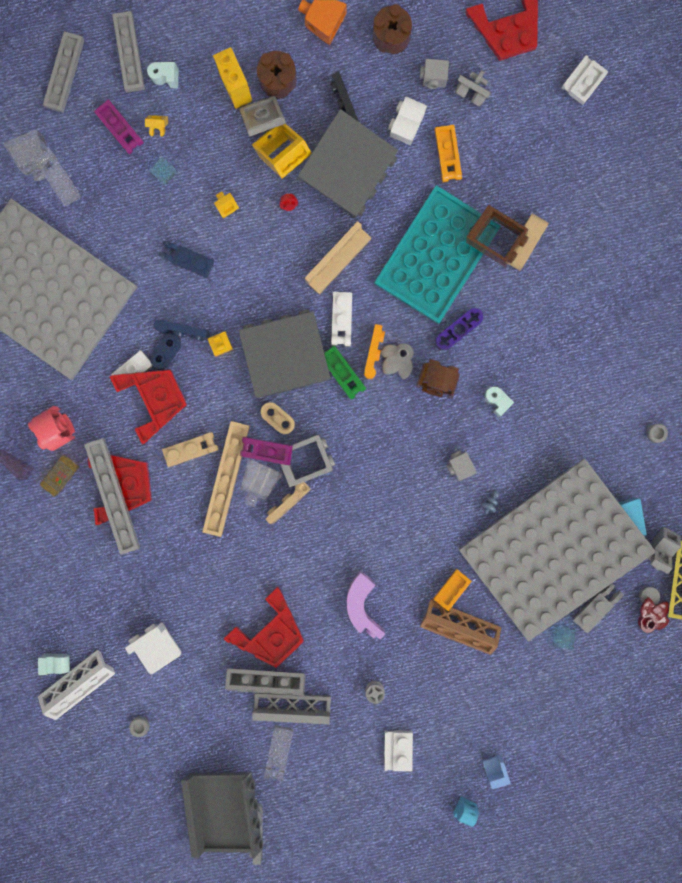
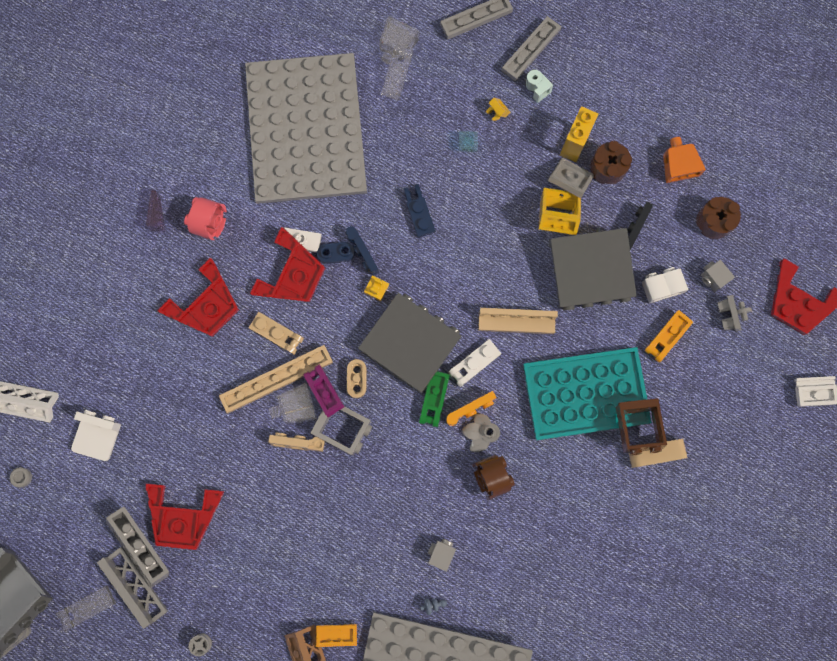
camera: 40 degrees right, 10 degrees down
(53, 664) = (19, 368): light aqua leg -> none
(59, 475) = (174, 253): clear yellow tile -> none
(112, 496) = (190, 304): light grey plate -> none
(118, 126) = (472, 84): magenta plate -> none
(225, 204) = (483, 205): yellow tile -> none
(288, 202) = (526, 249): red plate -> none
(356, 595) = (269, 559): lavender arch -> none
(466, 316) = (561, 457): dark purple beam -> none
(499, 399) = (519, 537): light aqua leg -> none

